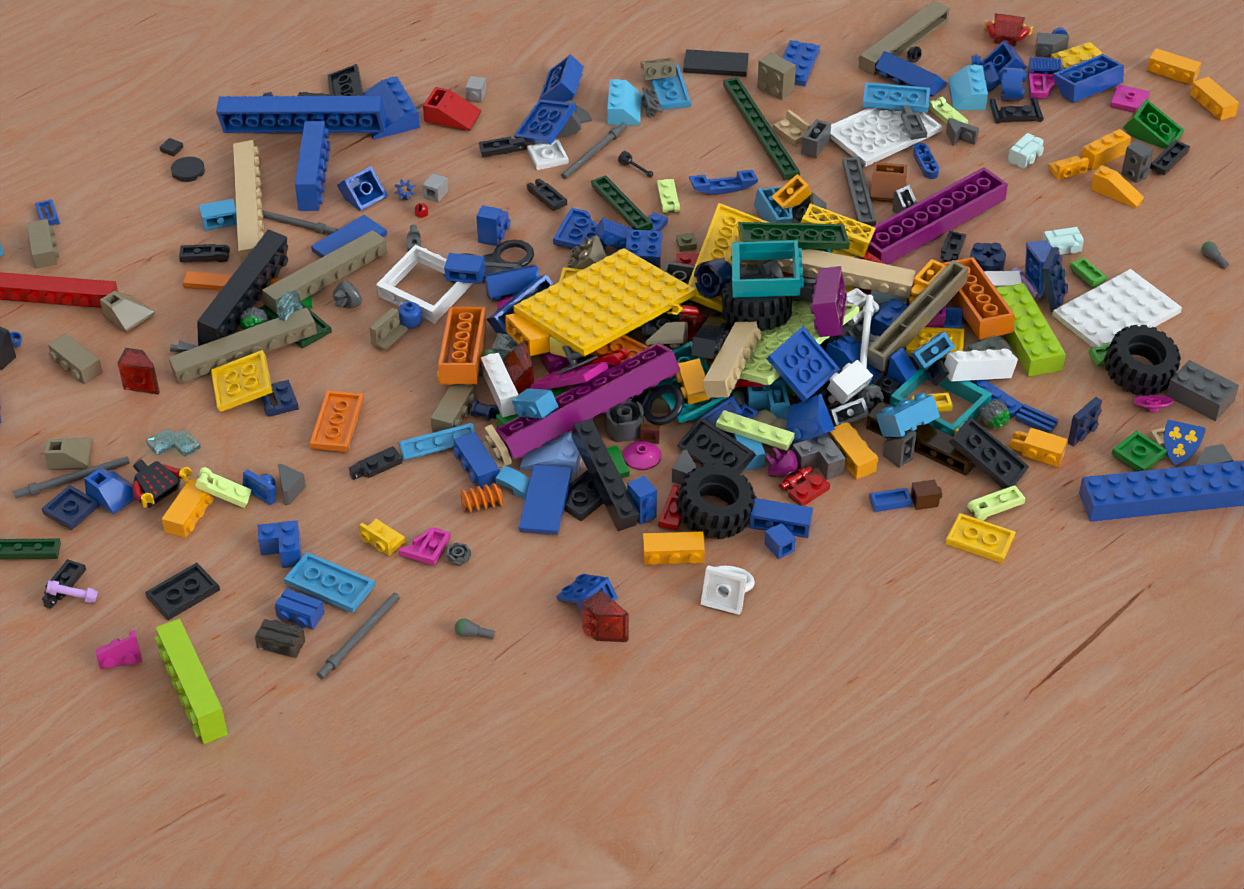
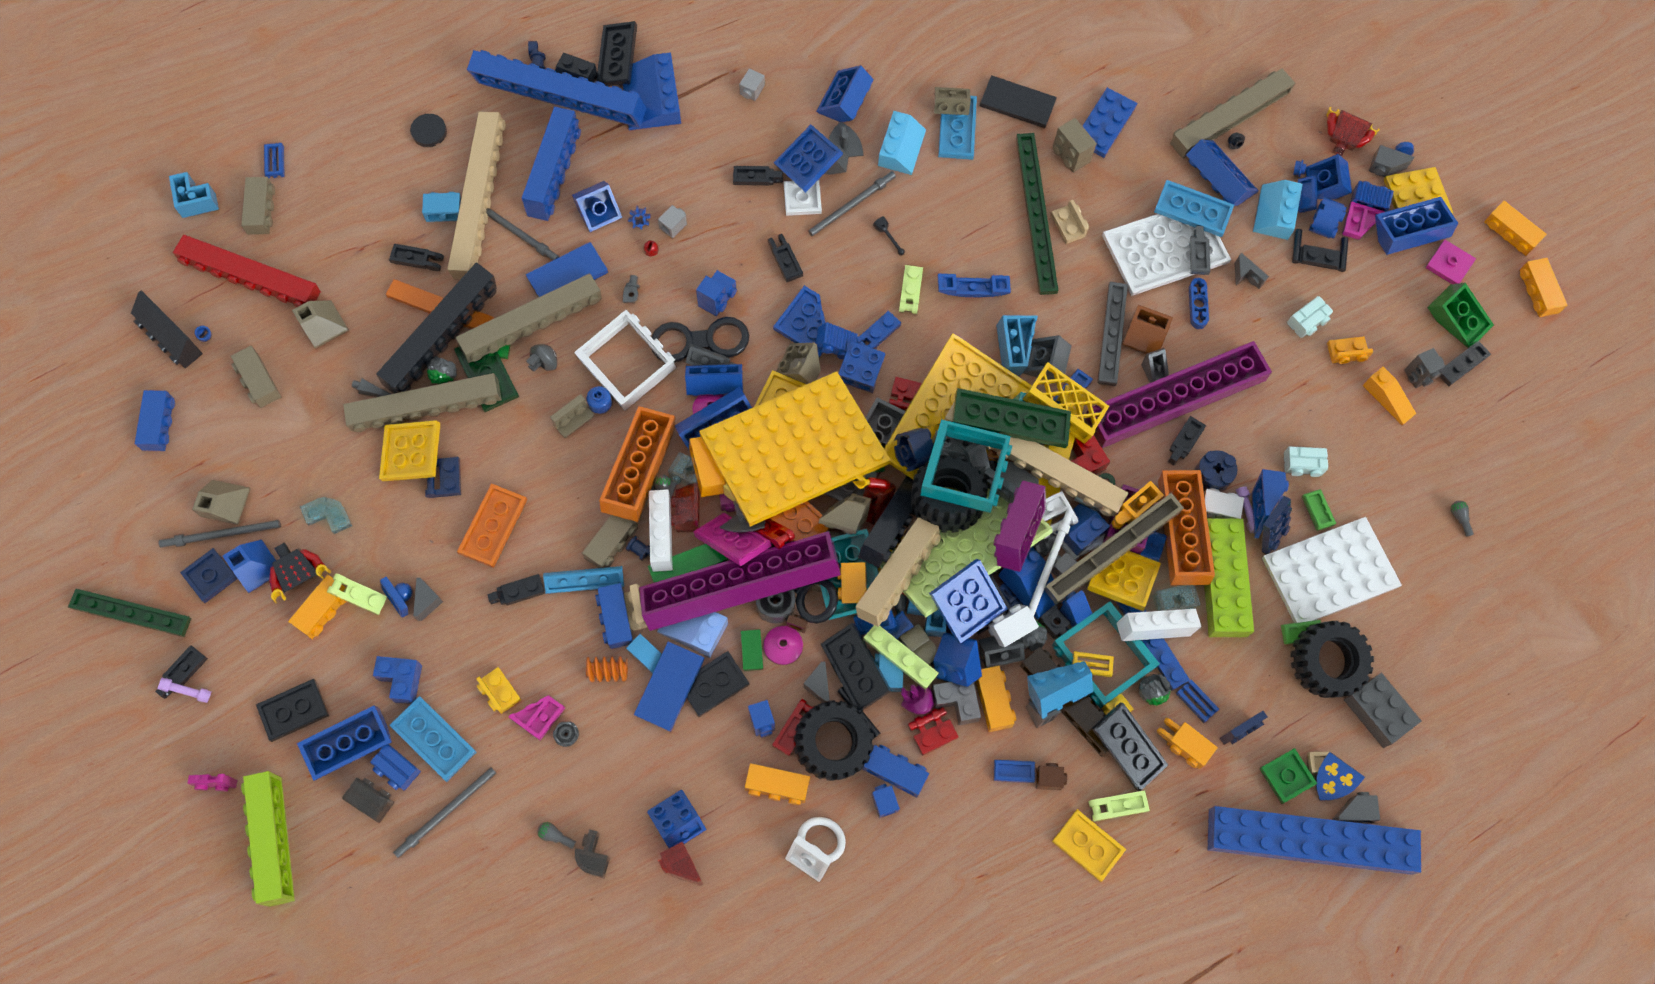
camera: 10 degrees right, 25 degrees up
(137, 372) = (308, 414): clear red slope -> none
(171, 147) = (419, 93): black tile -> none
(243, 593) = (345, 742): none -> blue slope
(288, 304) = (476, 367): clear light blue plate -> none
(450, 110) = (716, 111): red slope -> none
(464, 268) = (665, 361): blue brick -> none
(512, 639) = (588, 860): none -> clear smoke brick
(534, 403) = (682, 578): dark azure brick -> none
(605, 474) = (732, 679): black brick -> none
(621, 204) = (857, 295): dark green plate -> none
(651, 102) = (931, 148): dark grey hinge -> none
(686, 241) = (911, 360): olive plate -> none
(792, 193) = (1035, 335): light orange slope -> none
(816, 138) = (1089, 247): dark grey brick -> none
(932, 350) = (1113, 603): dark azure brick -> none
(937, 372) = (1111, 625): black tile -> none
(945, 111) = (1244, 237): yellowish green plate -> none
(1106, 149) = (1397, 337): light orange brick -> none
(1153, 402) = (1326, 712): dark pink dish -> none

